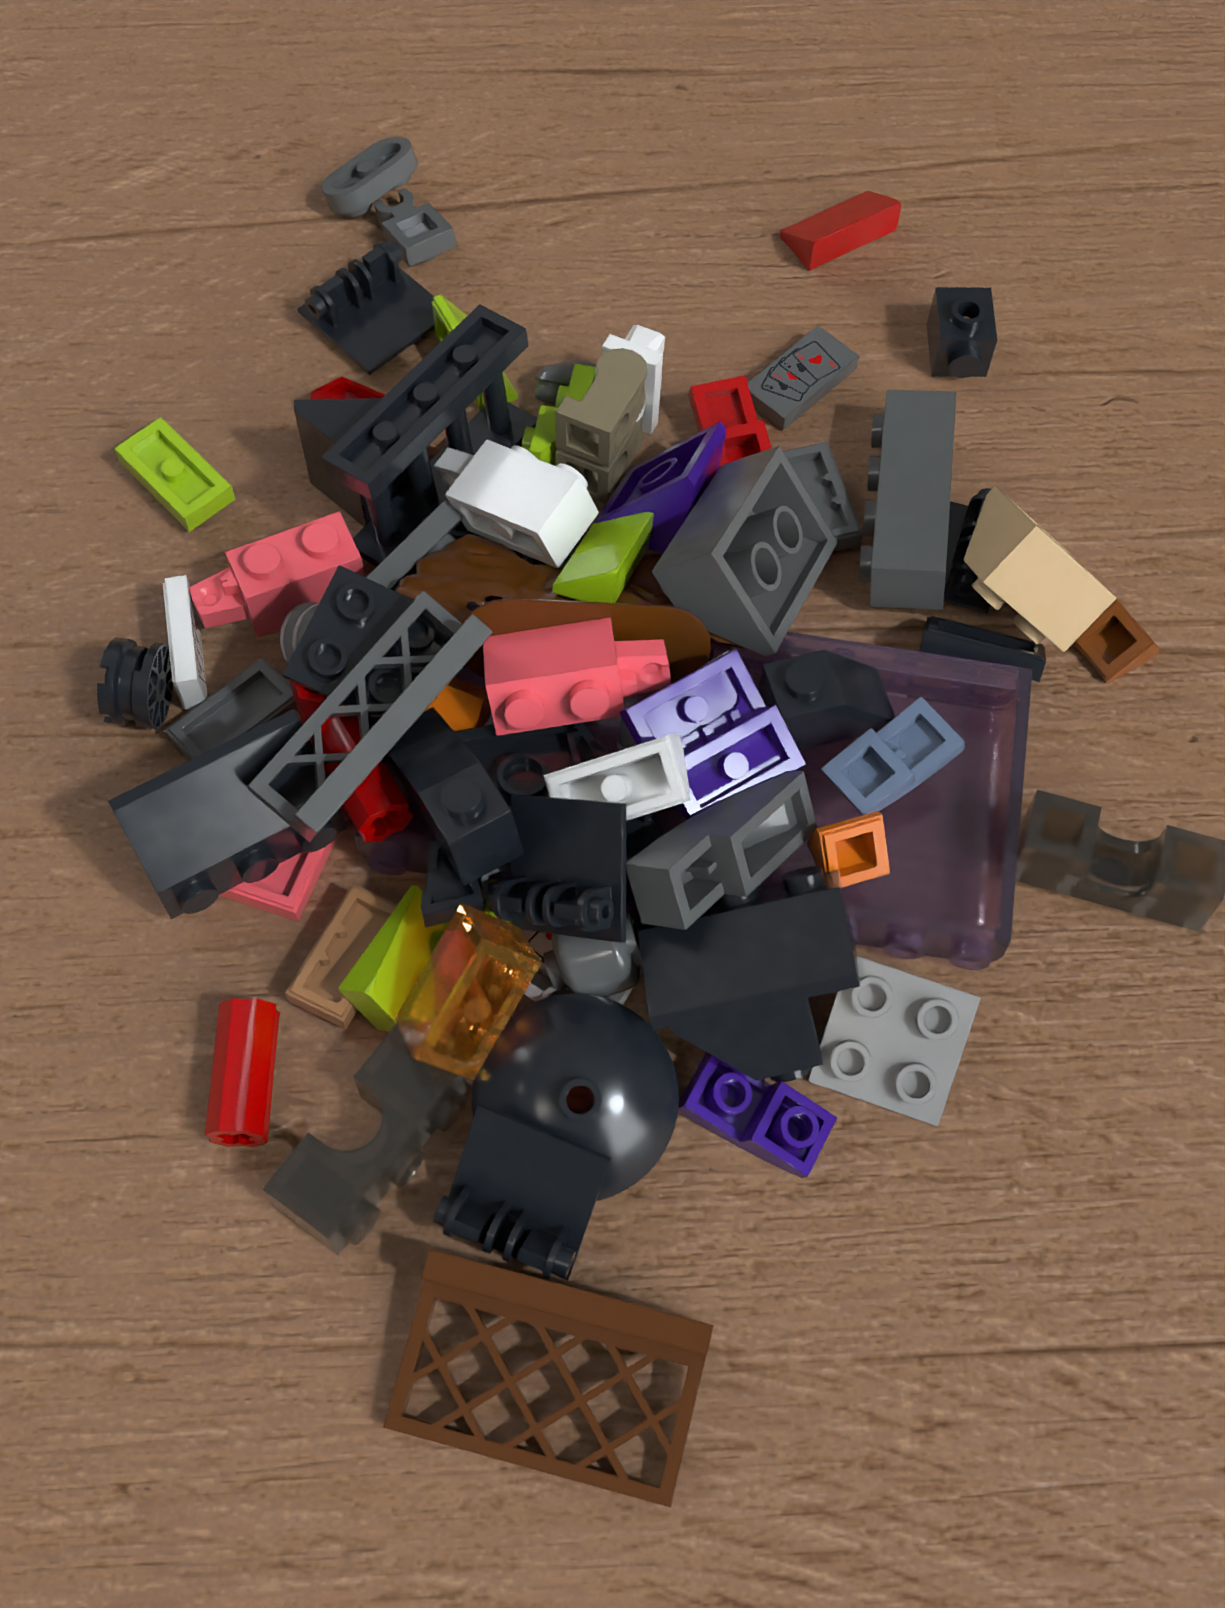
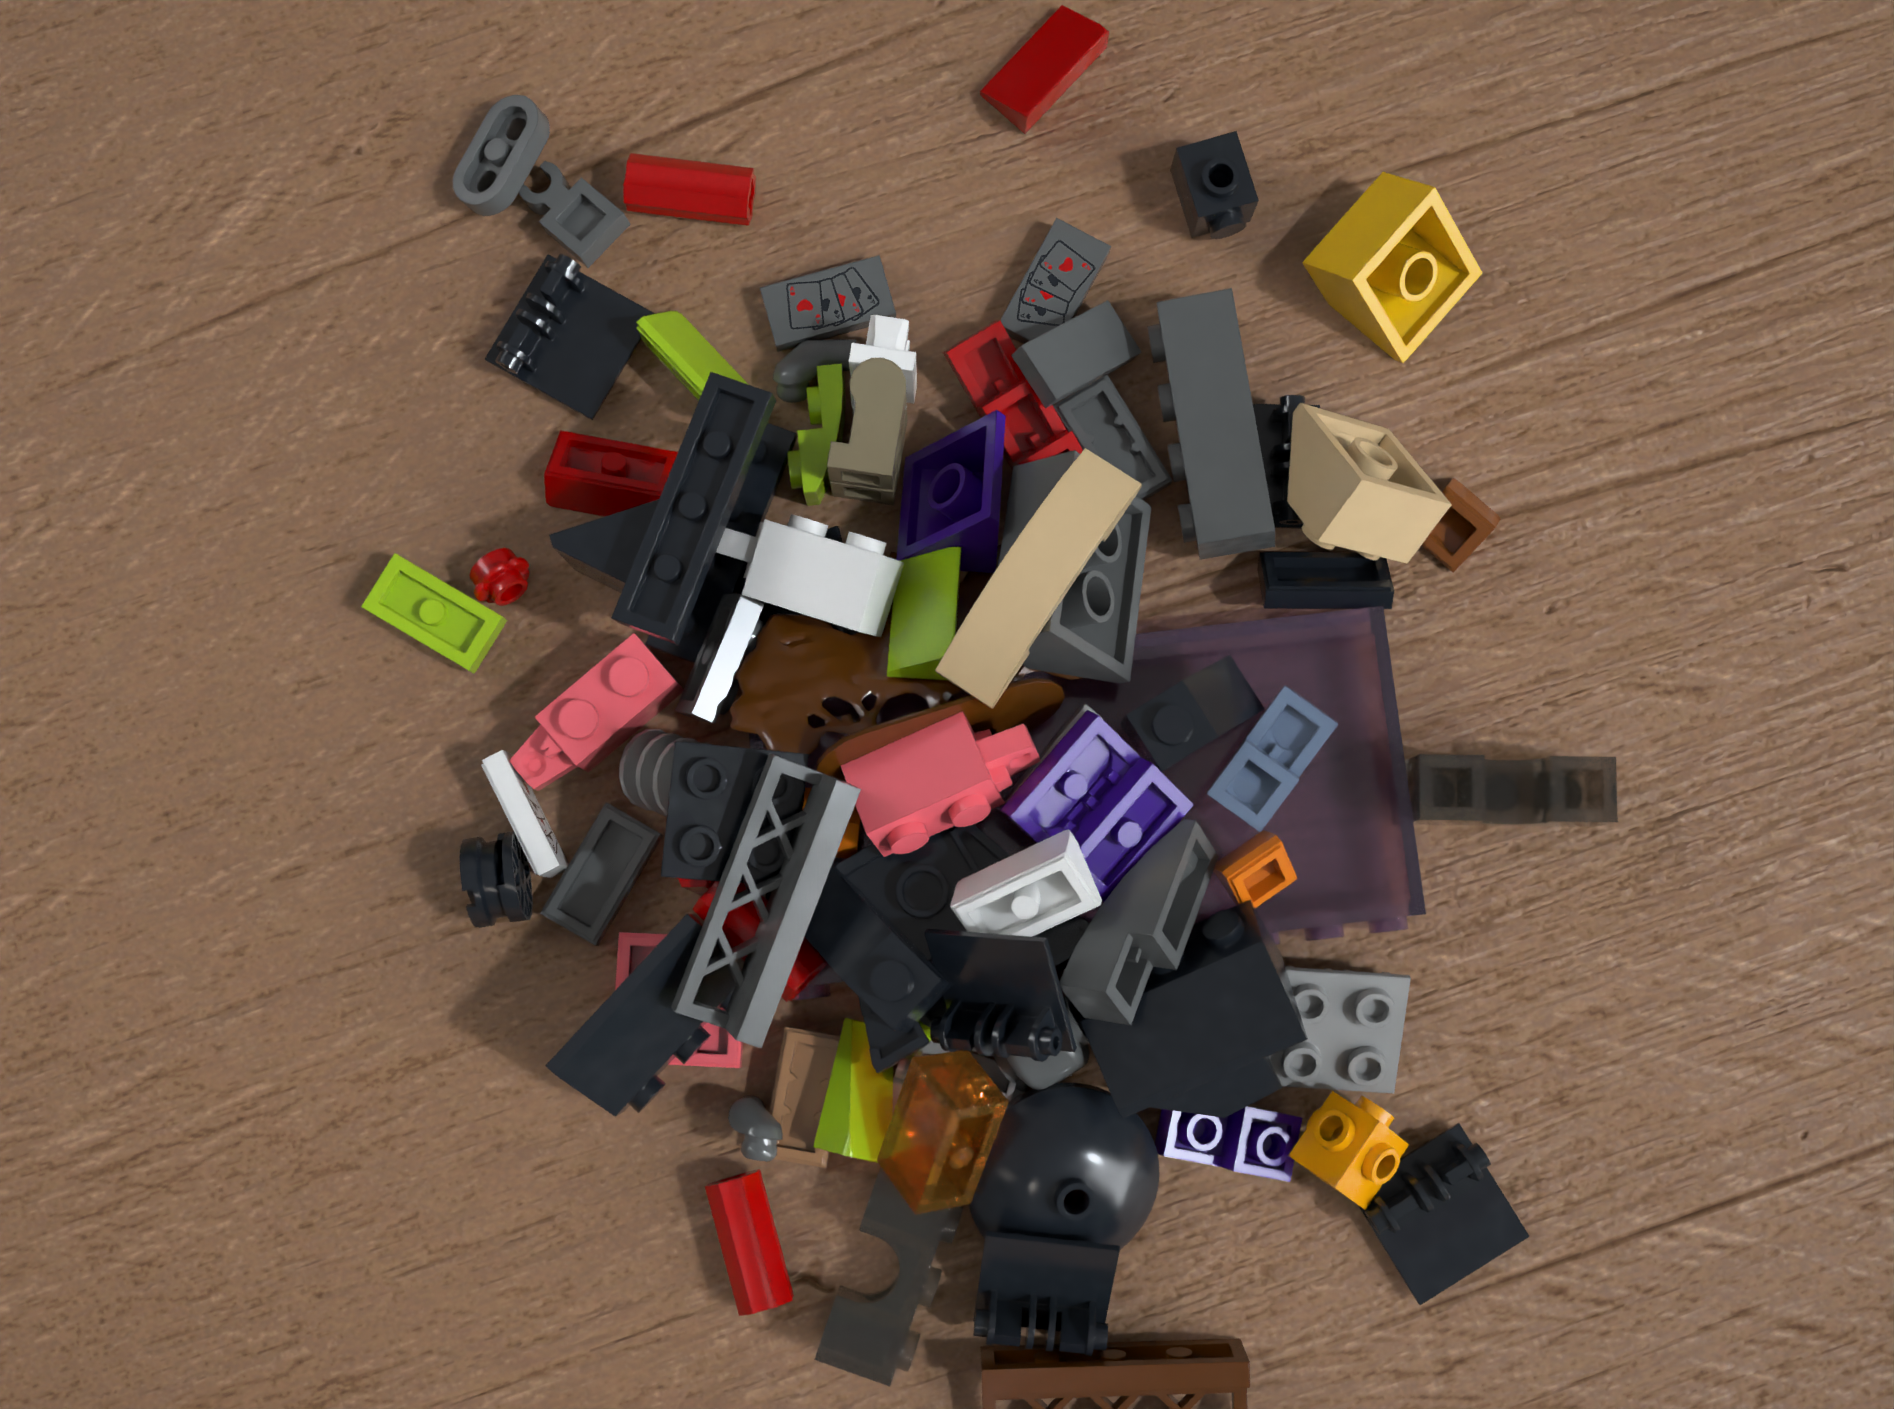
camera: 15 degrees left, 20 degrees up
(238, 450) = (500, 577): none -> red plate
(288, 957) = (759, 1126): none -> dark grey arm
(514, 233) = (689, 189): none -> red axle
(583, 335) = (827, 302): none -> dark grey tile
(704, 511) = (1036, 576): none -> tan slope
(804, 416) = (1076, 354): none -> dark grey tile
(878, 1150) = (1350, 1147): none -> light orange brick
(957, 1255) = (1443, 1214): none -> black hinge
(1108, 426) = (1394, 264): none -> yellow slope

